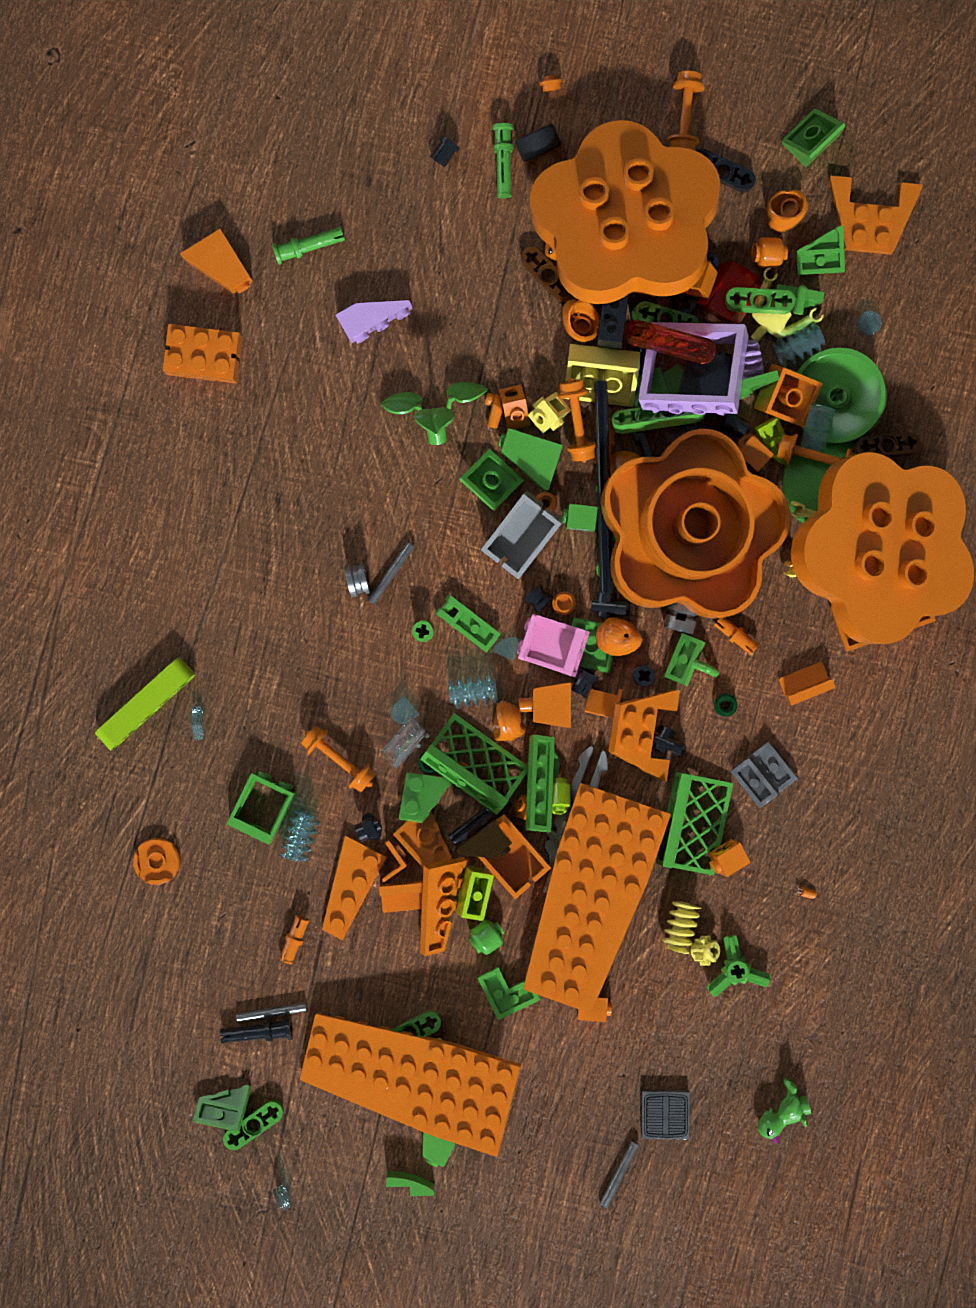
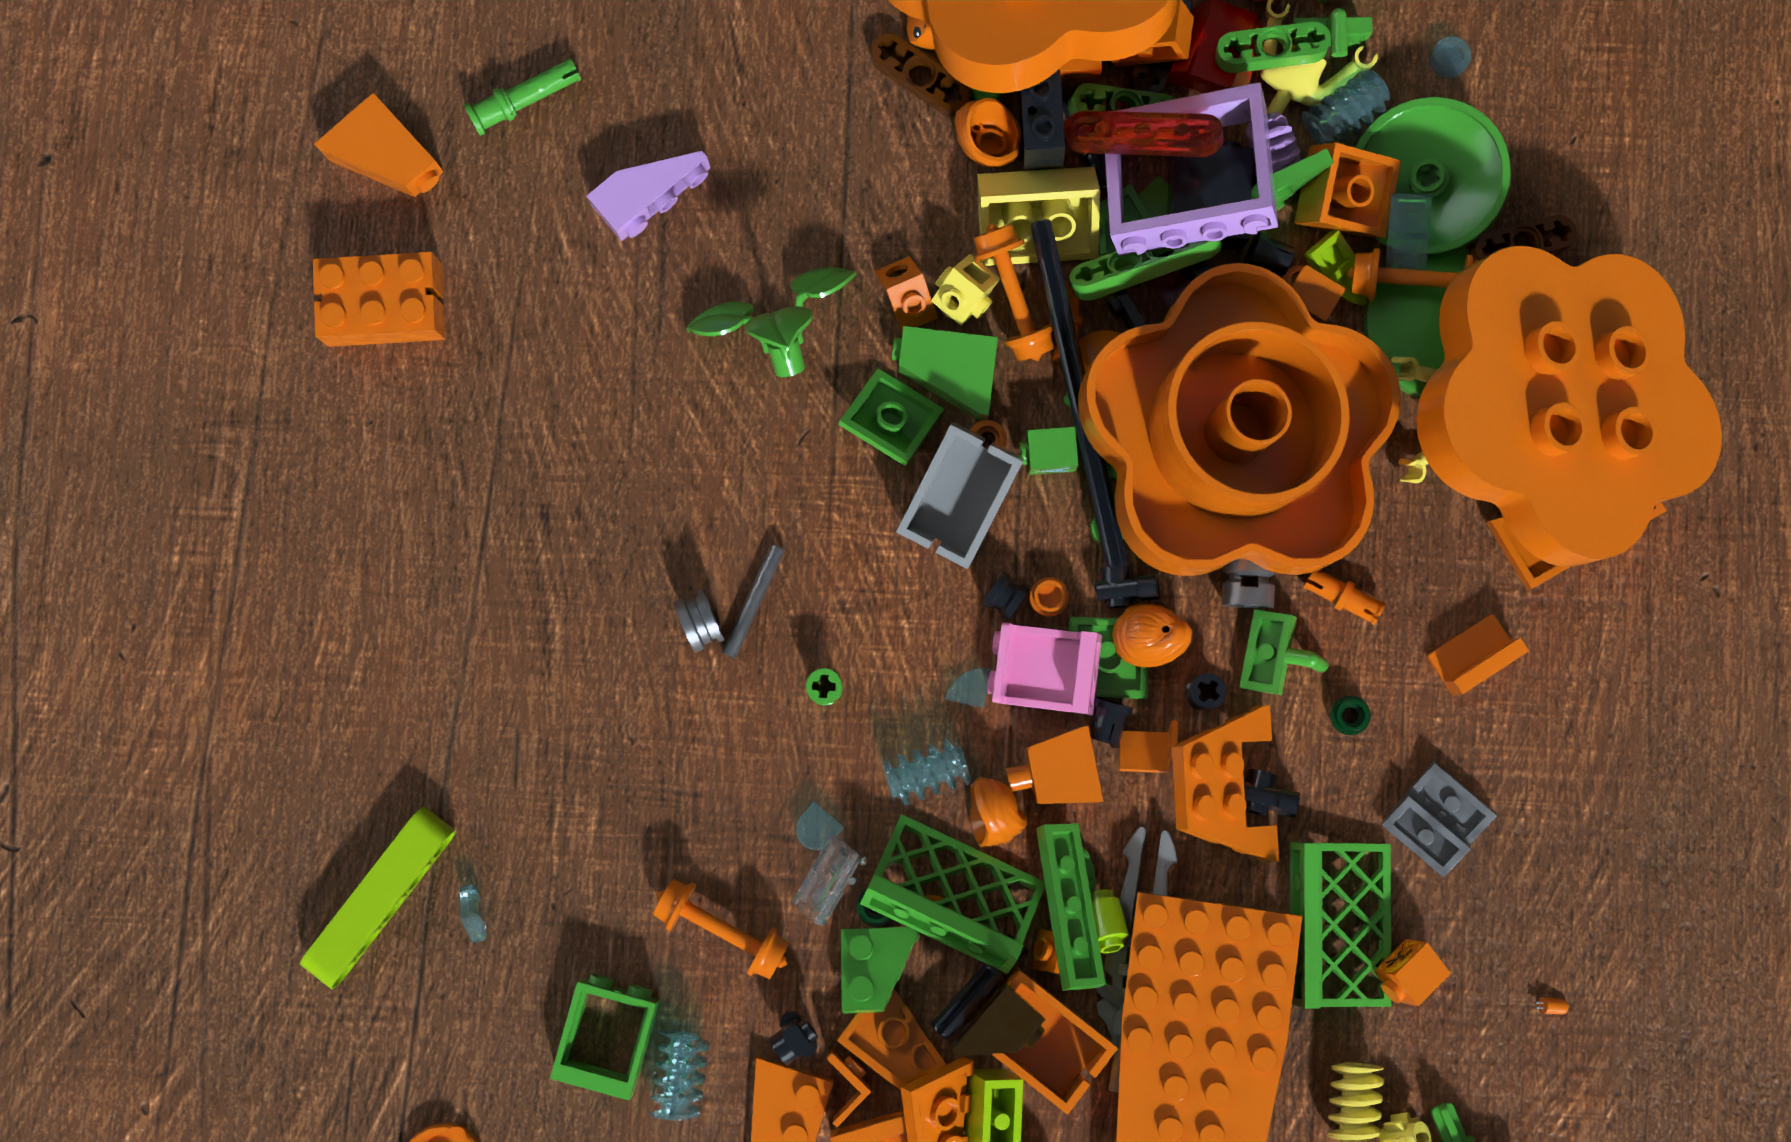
camera: 15 degrees left, 5 degrees down
(468, 624) = (898, 660): bright green plate -> none
(496, 409) = (877, 304): orange arm -> none

